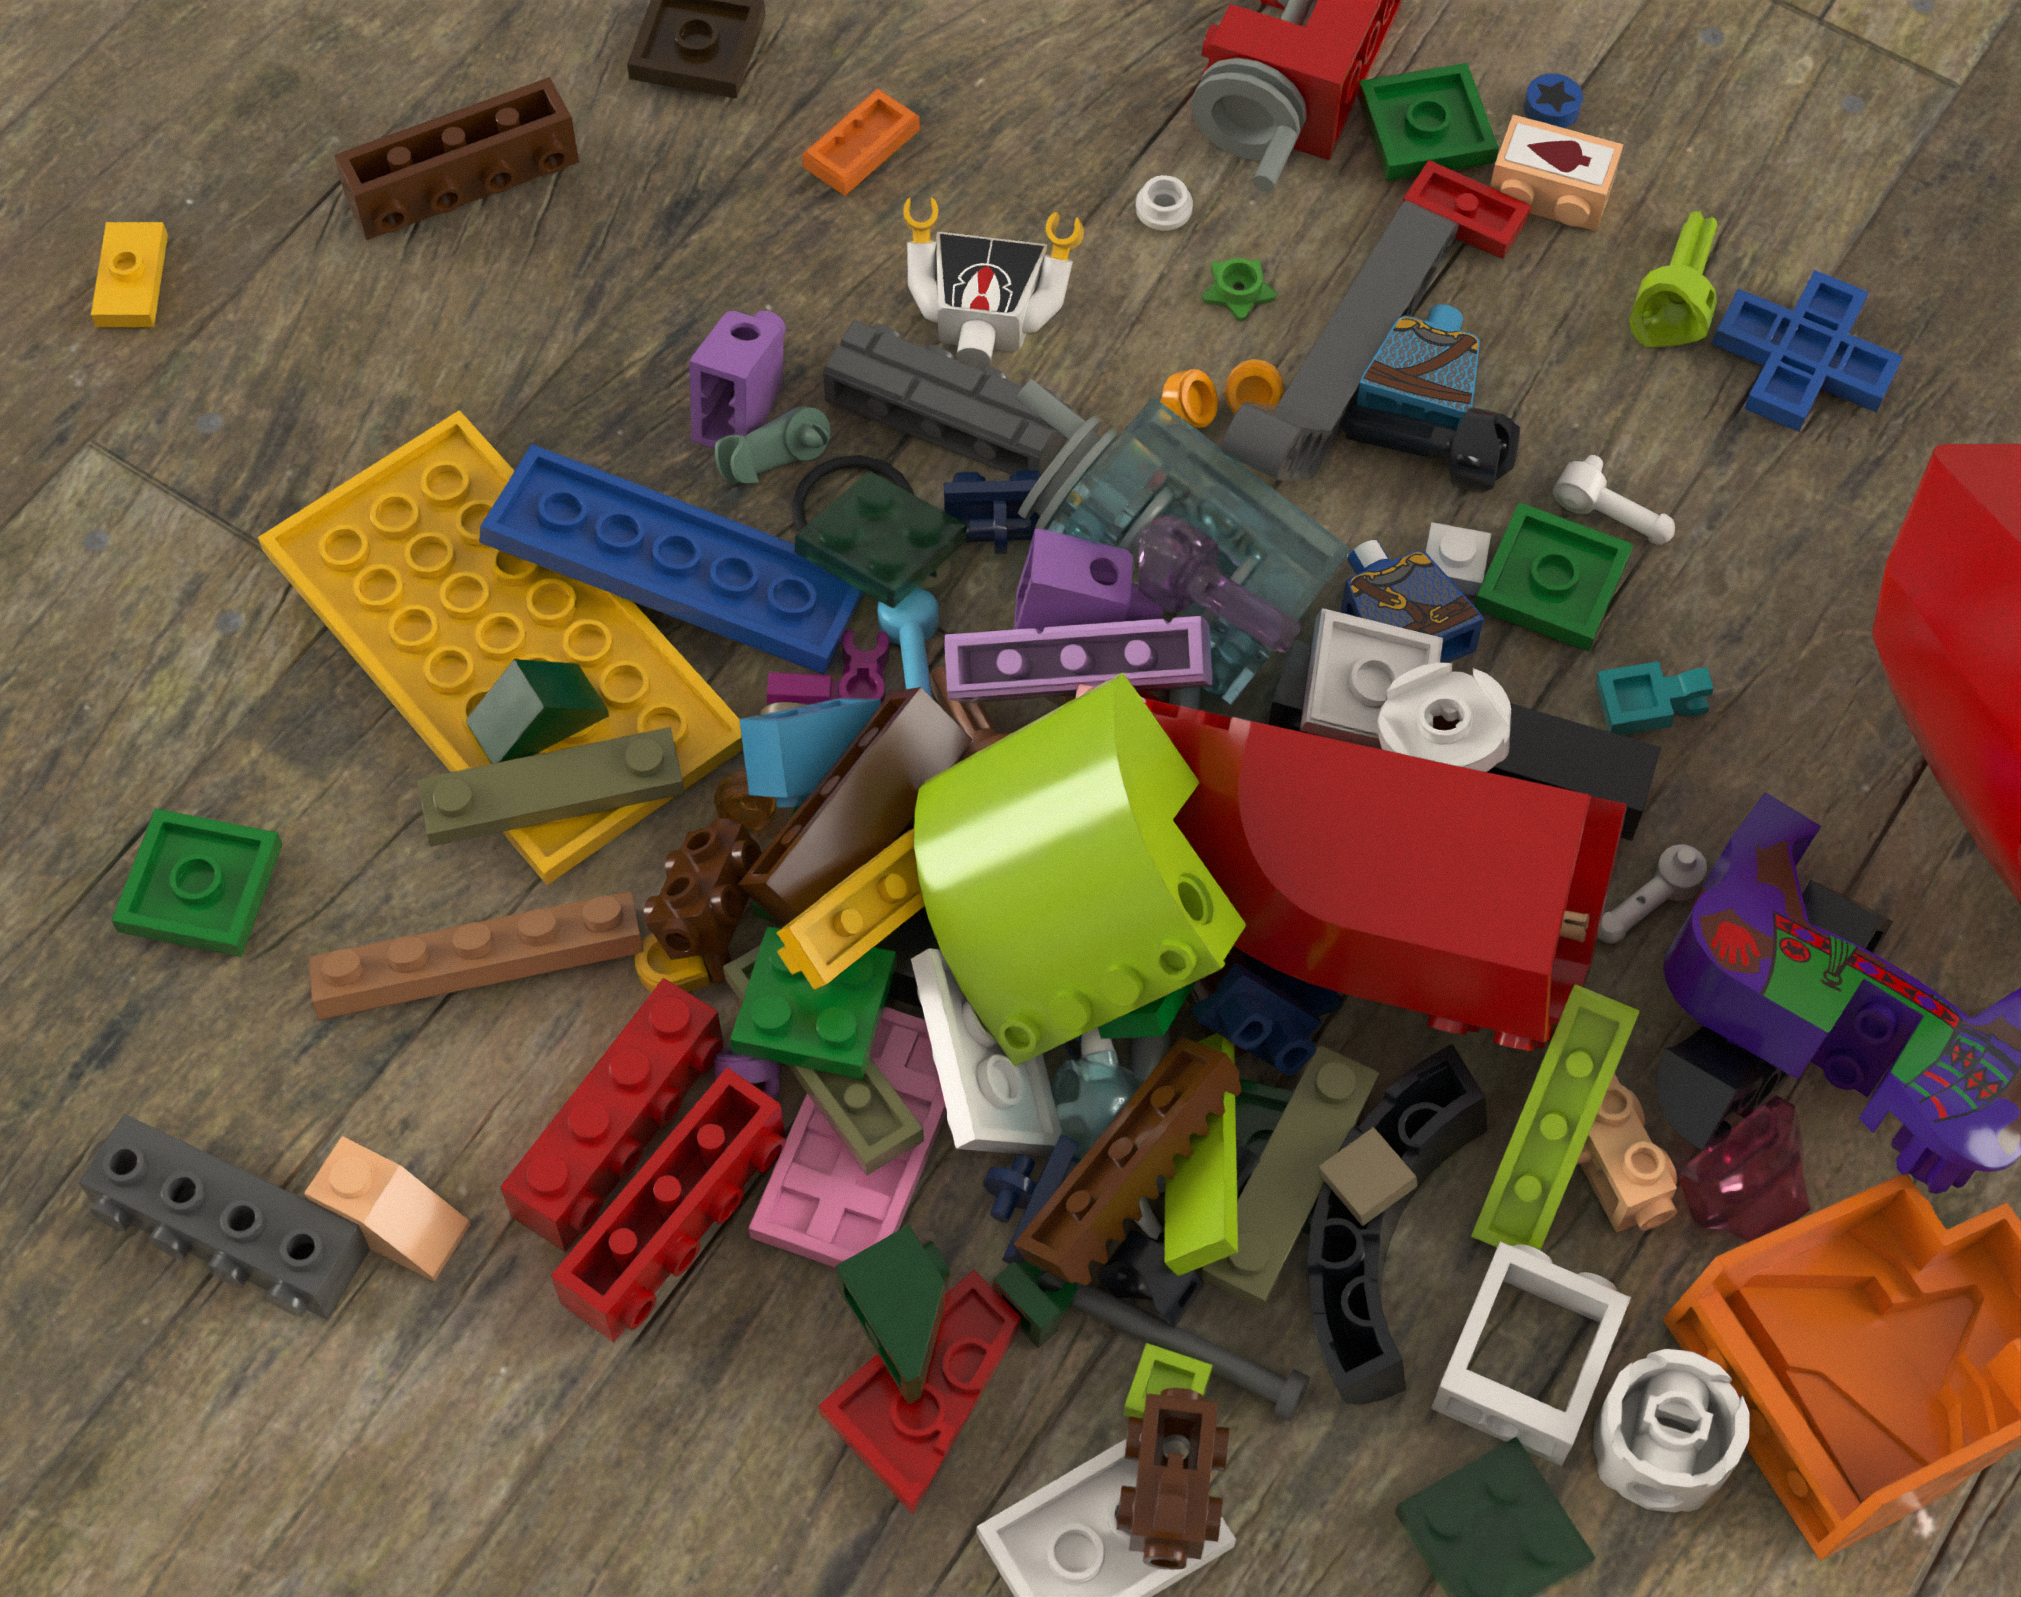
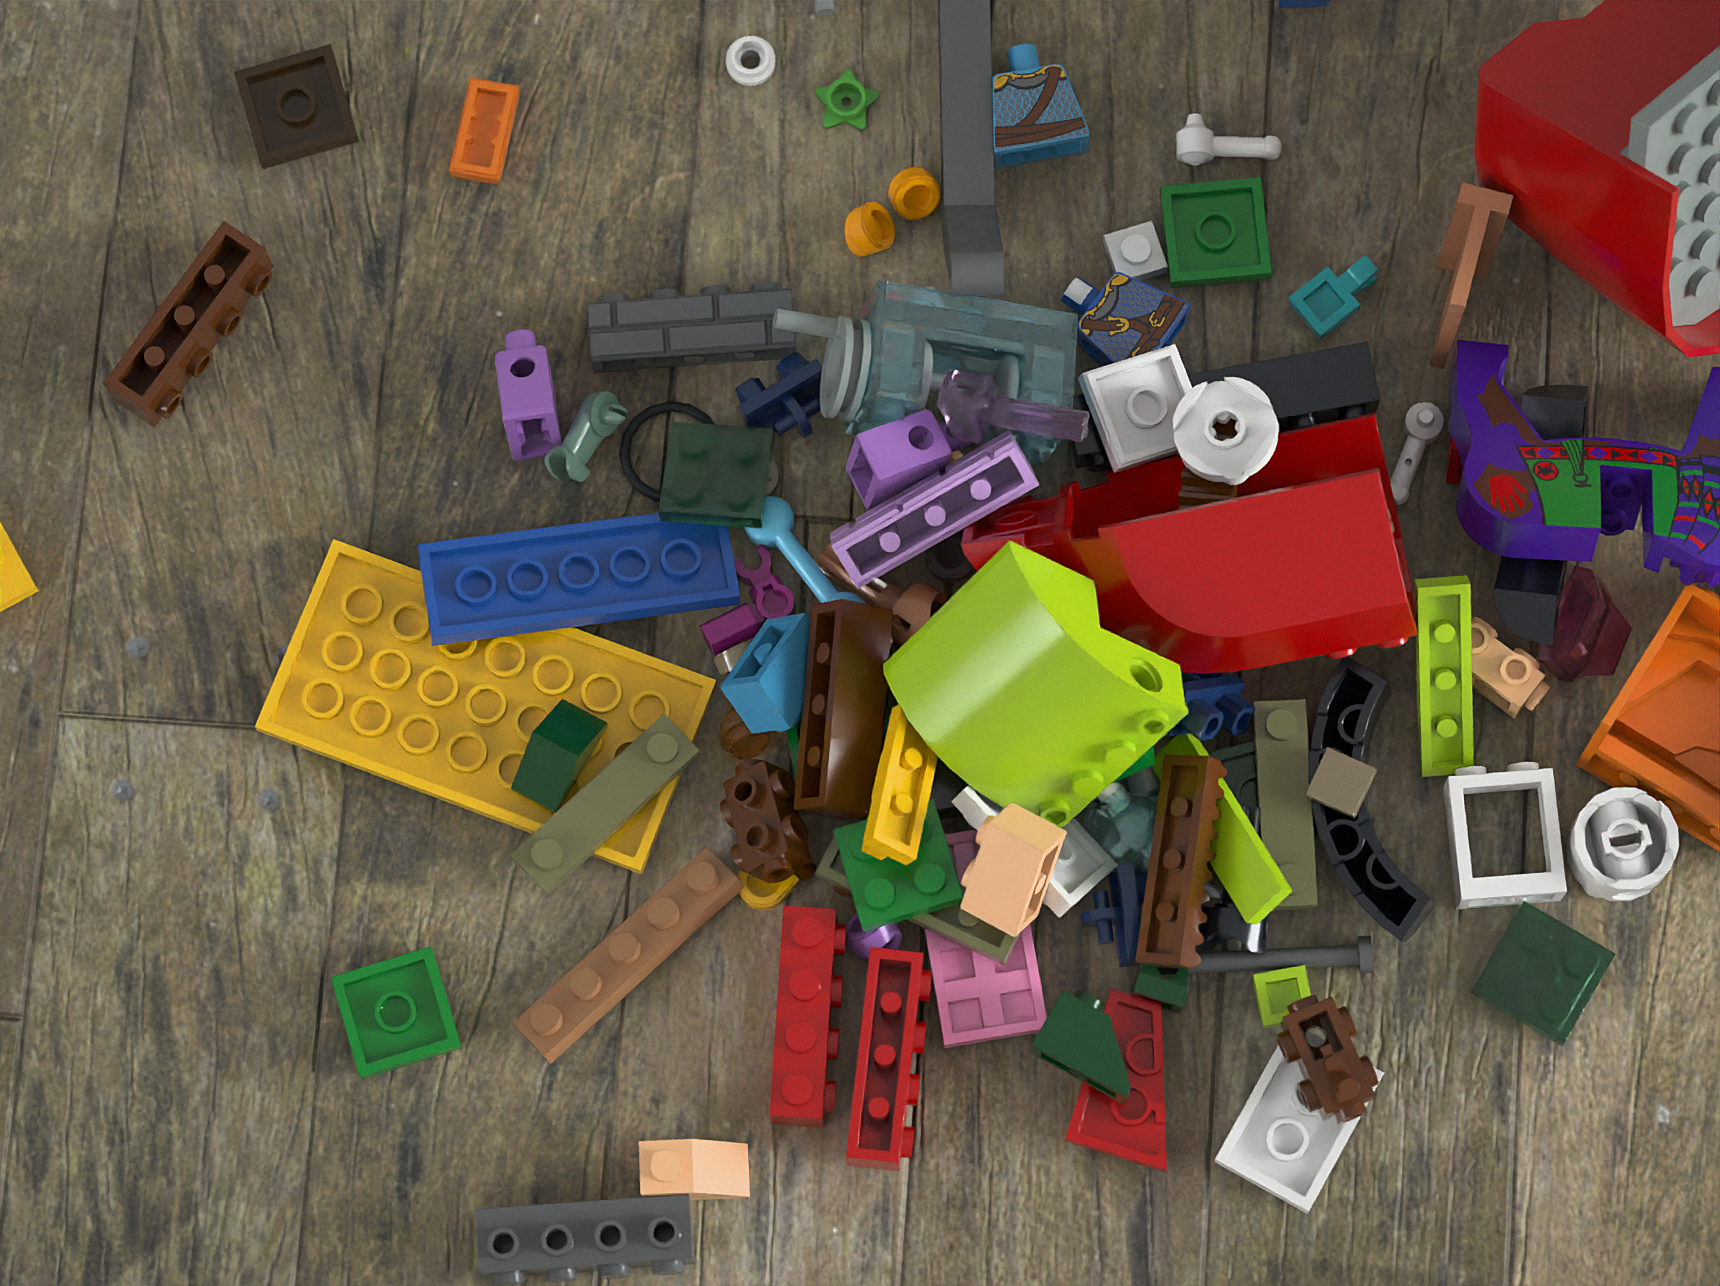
camera: 25 degrees left, 15 degrees up
(930, 1056) = (1011, 868): none -> light nougat brick
(986, 288) = (663, 215): torso -> none
(1472, 448) = (1104, 160): black piece -> none
(1822, 703) = (1468, 252): none -> nougat fence

